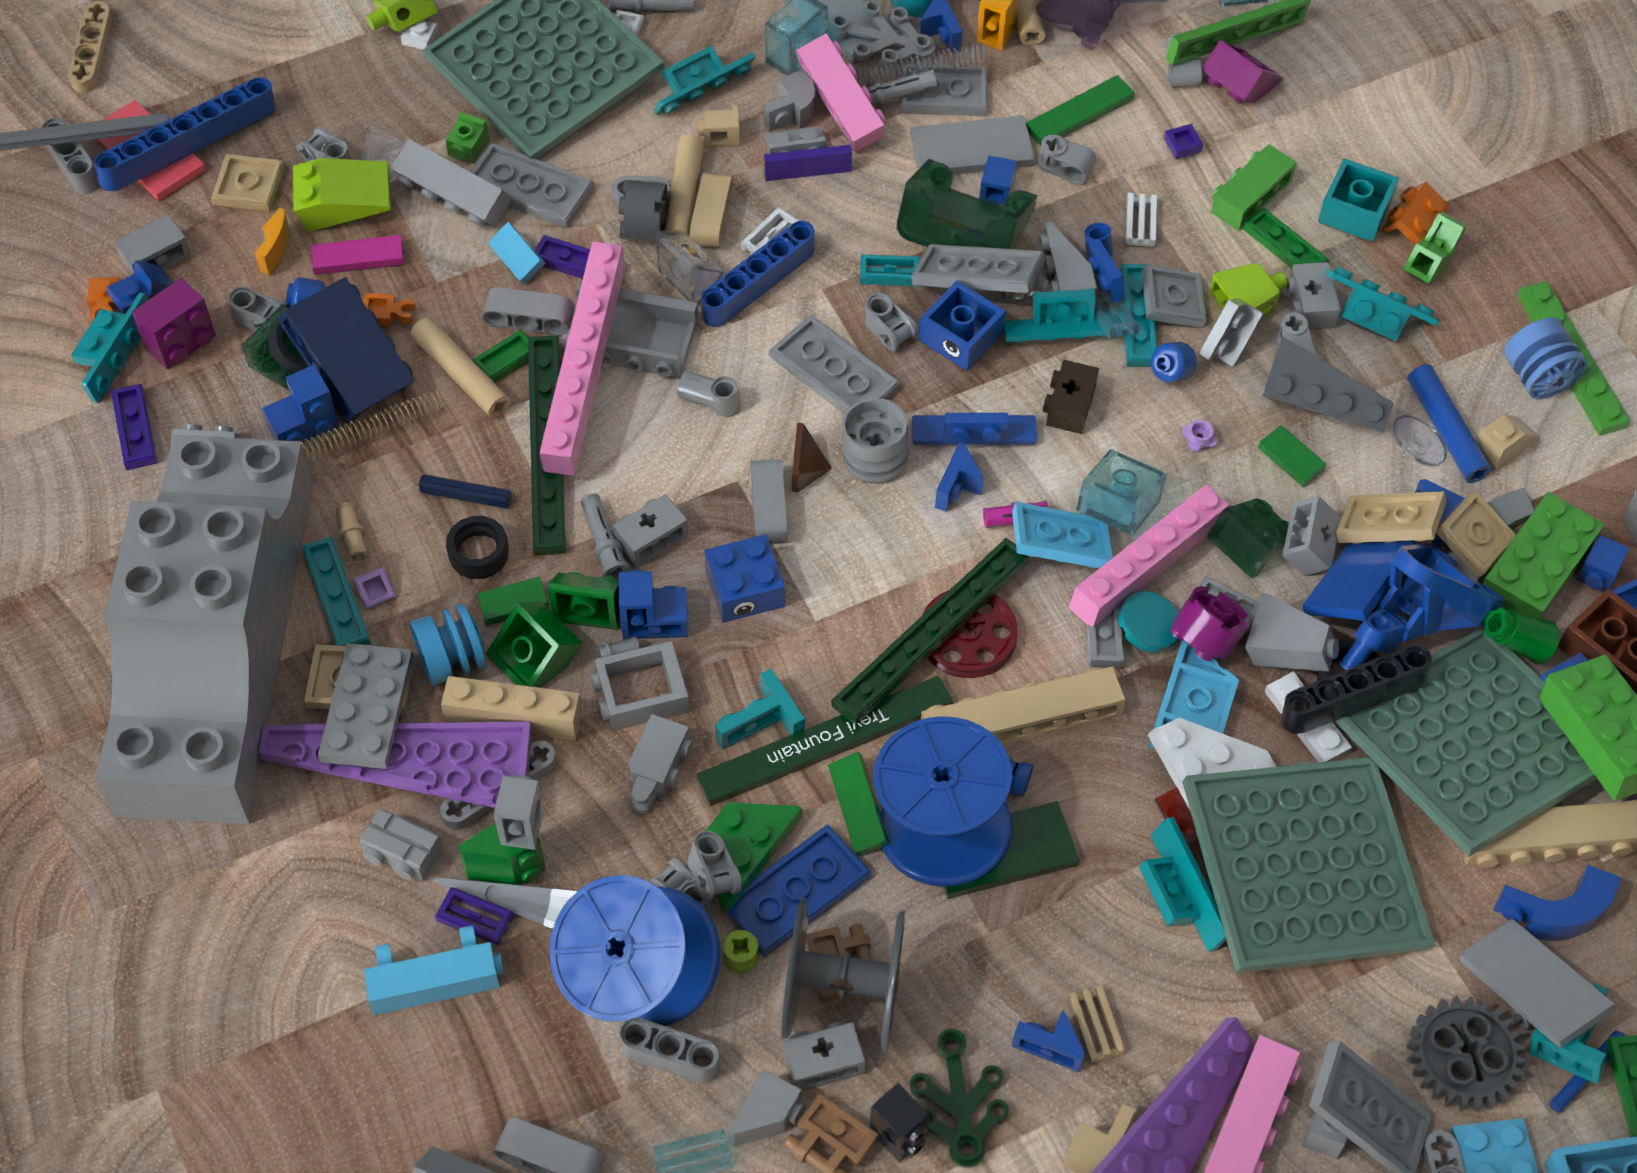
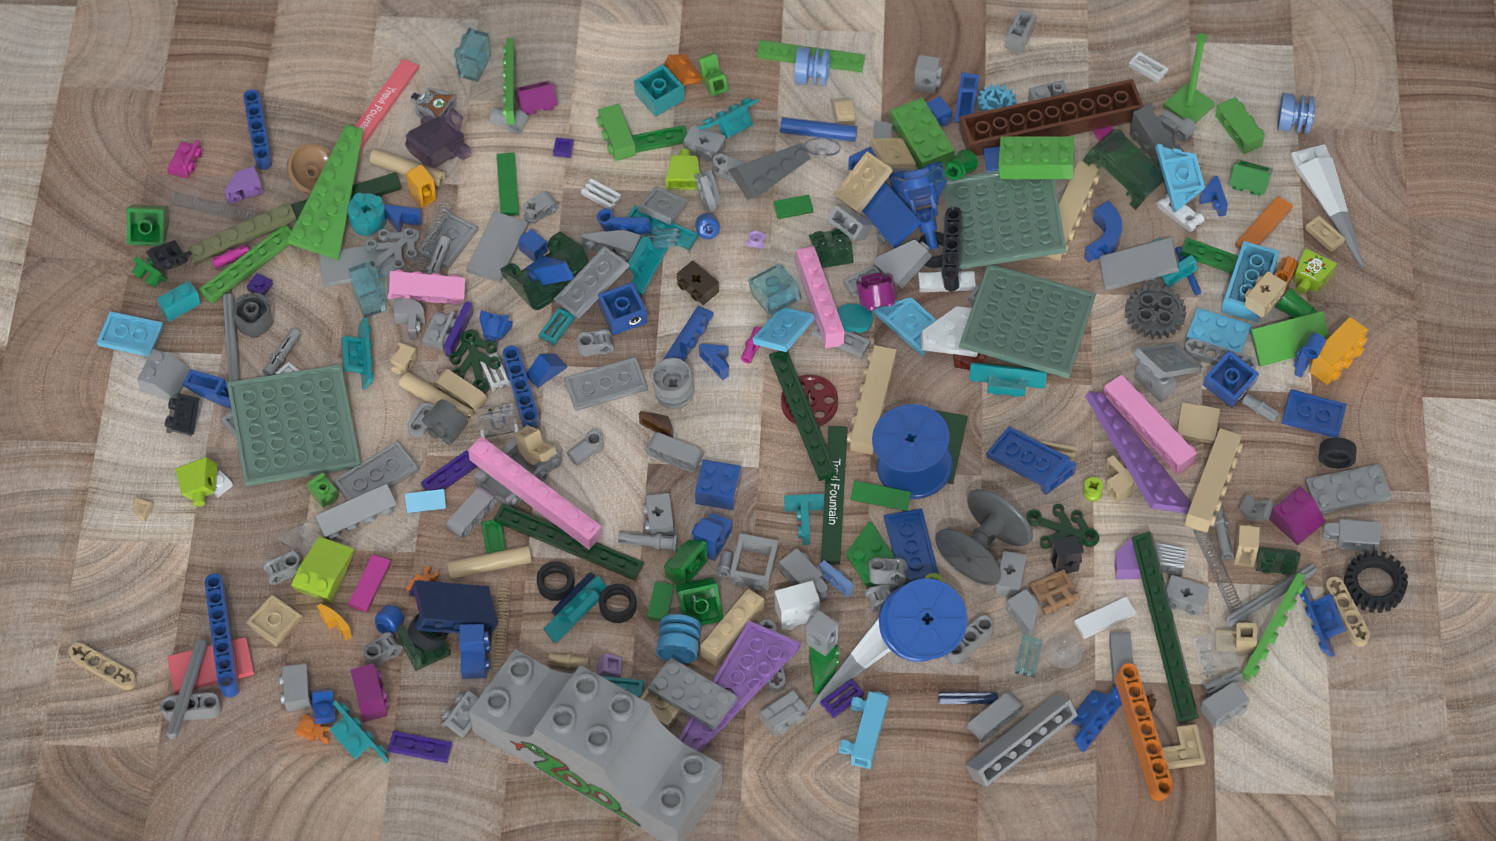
camera: 60 degrees left, 0 degrees up
(437, 501) = (575, 609): none -> teal bracket
(468, 437) = (555, 567): none -> black tyre
(566, 1097) = (967, 697): none -> dark blue axle
(588, 773) = (796, 604): none -> white brick
(664, 322) = (532, 446): none -> tan brick
(675, 808) = (836, 579): none -> medium blue plate
(800, 185) = (474, 358): none -> dark green plant
(813, 287) = (545, 368): none -> blue slope
(834, 197) = (494, 325): none -> blue brick
(957, 207) = (549, 271): none -> blue slope
(1051, 981) = (1027, 457): none -> blue tile
(1058, 1119) = (1090, 493): none -> lime wheel

